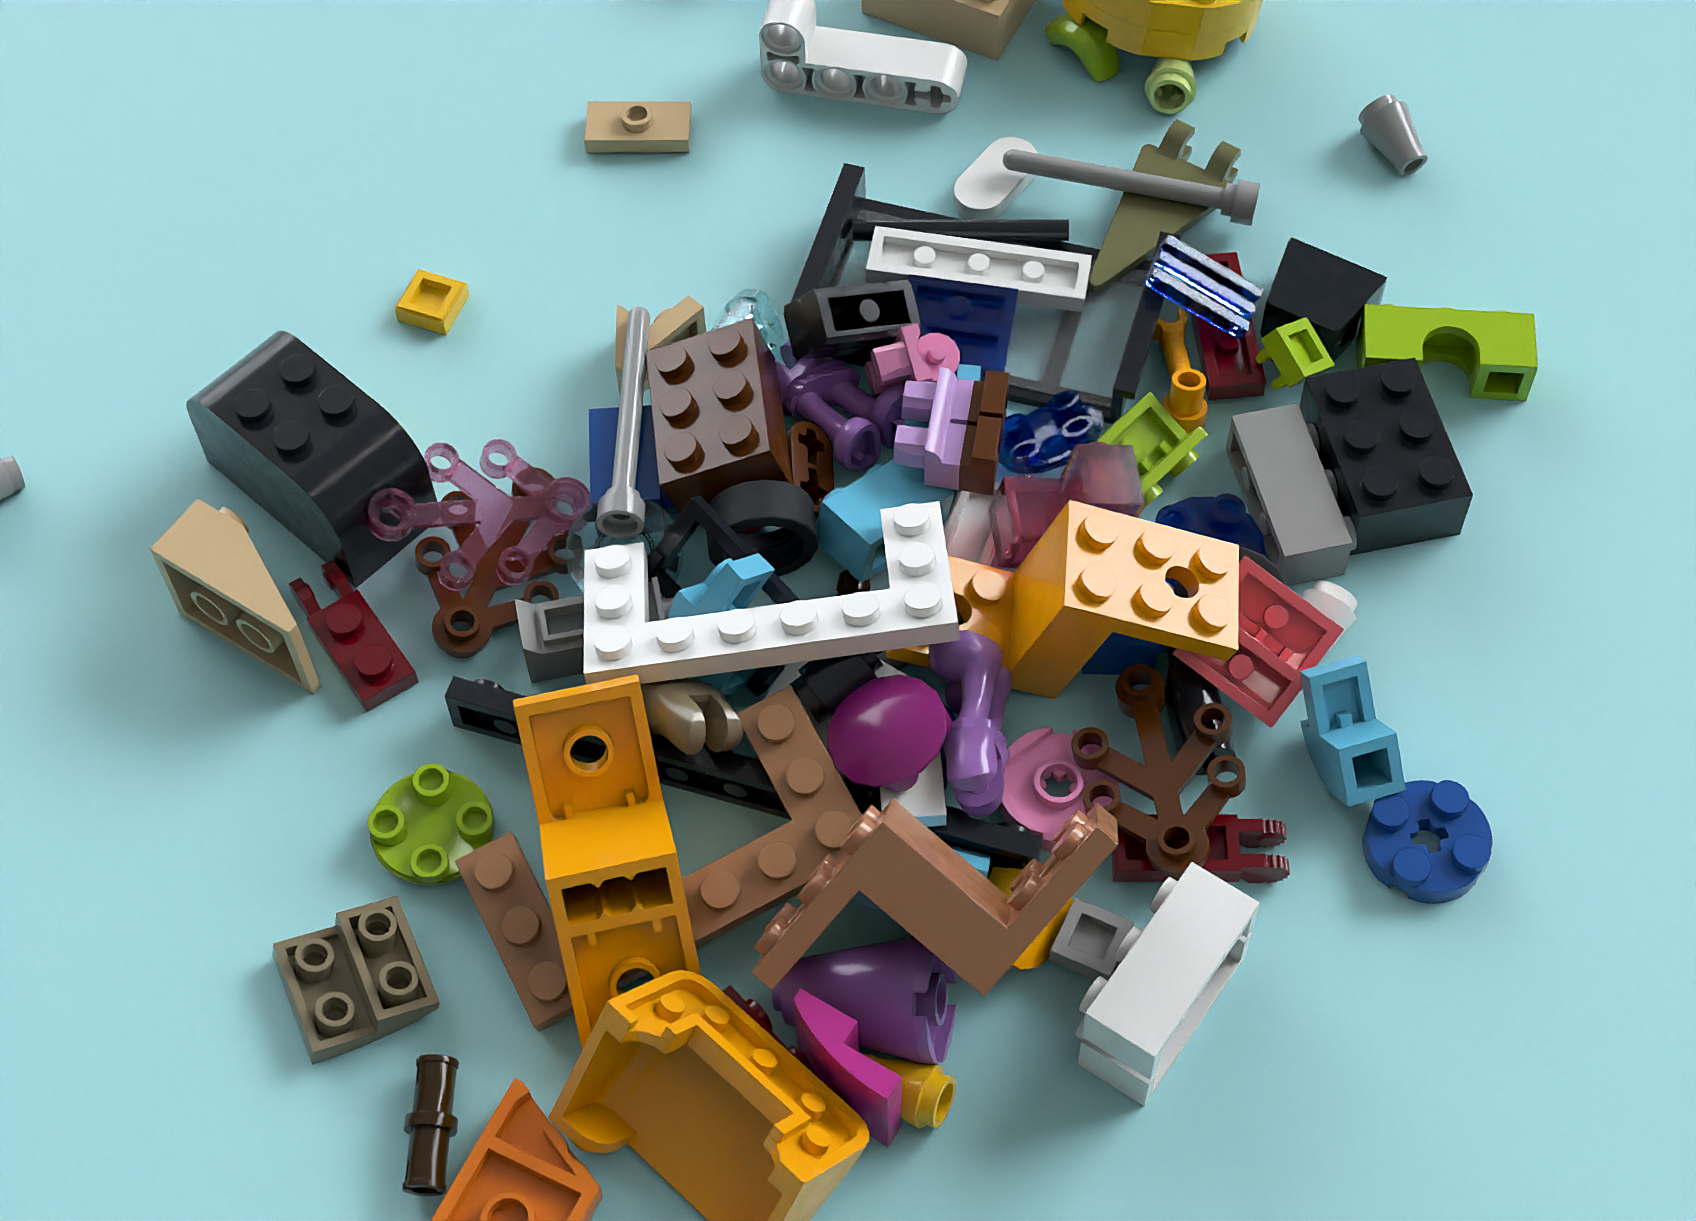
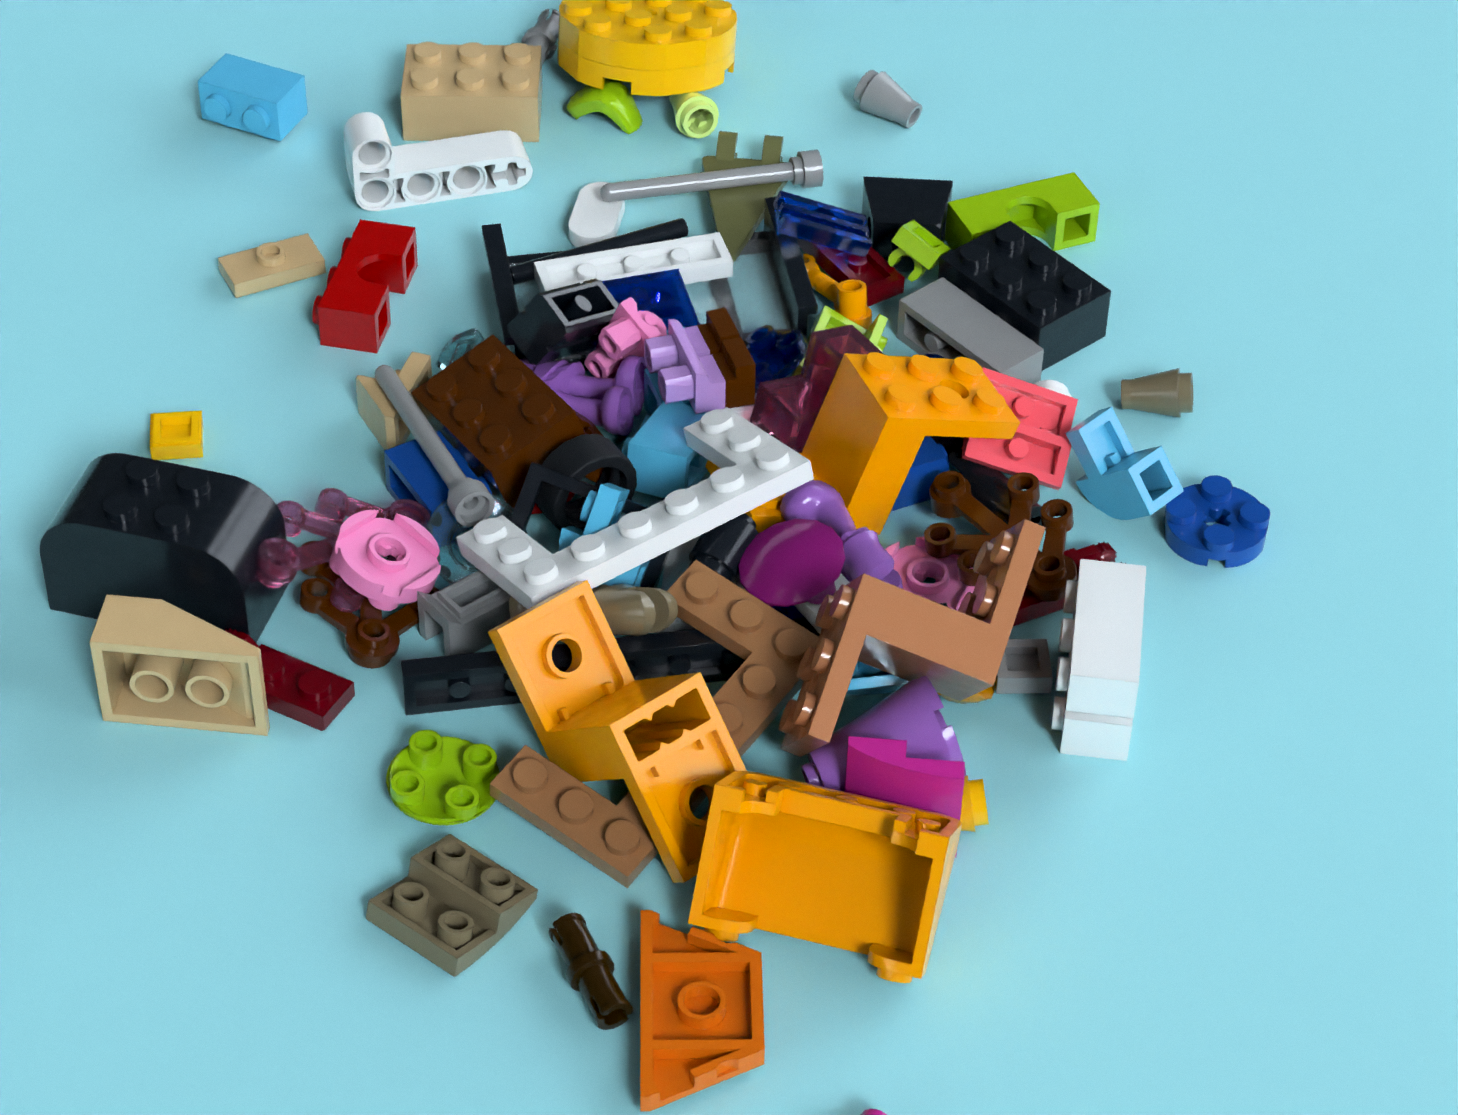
camera: 30 degrees left, 15 degrees down
(492, 576) = (383, 581): none -> bright pink plate
(730, 160) = (356, 300): none -> red arch
(1468, 643) = (1159, 393): none -> dark tan cone

